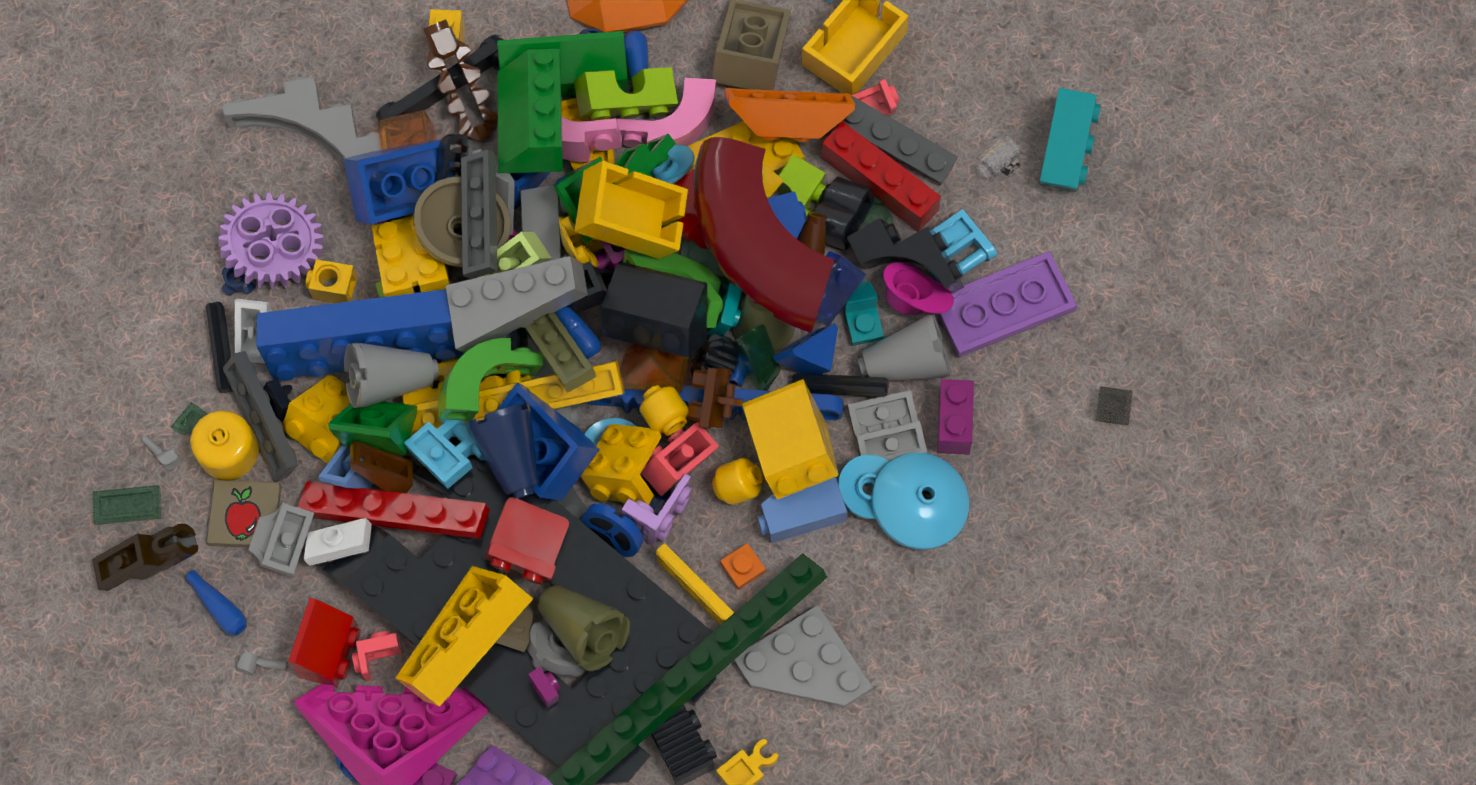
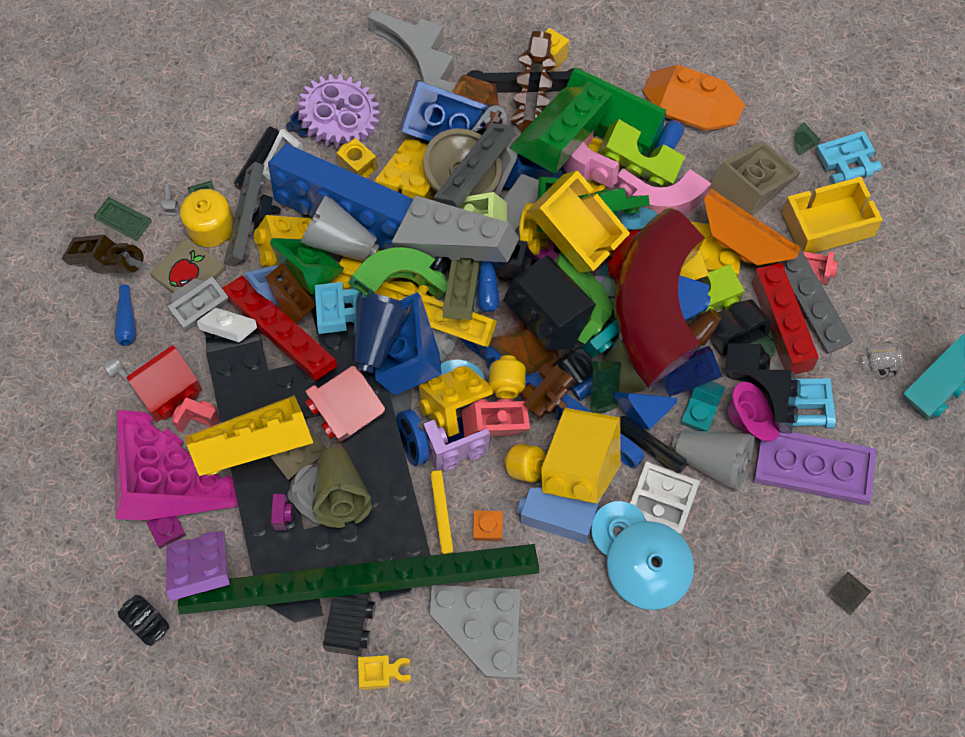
camera: 35 degrees right, 5 degrees down
(955, 416) = (719, 521): magenta brick -> none

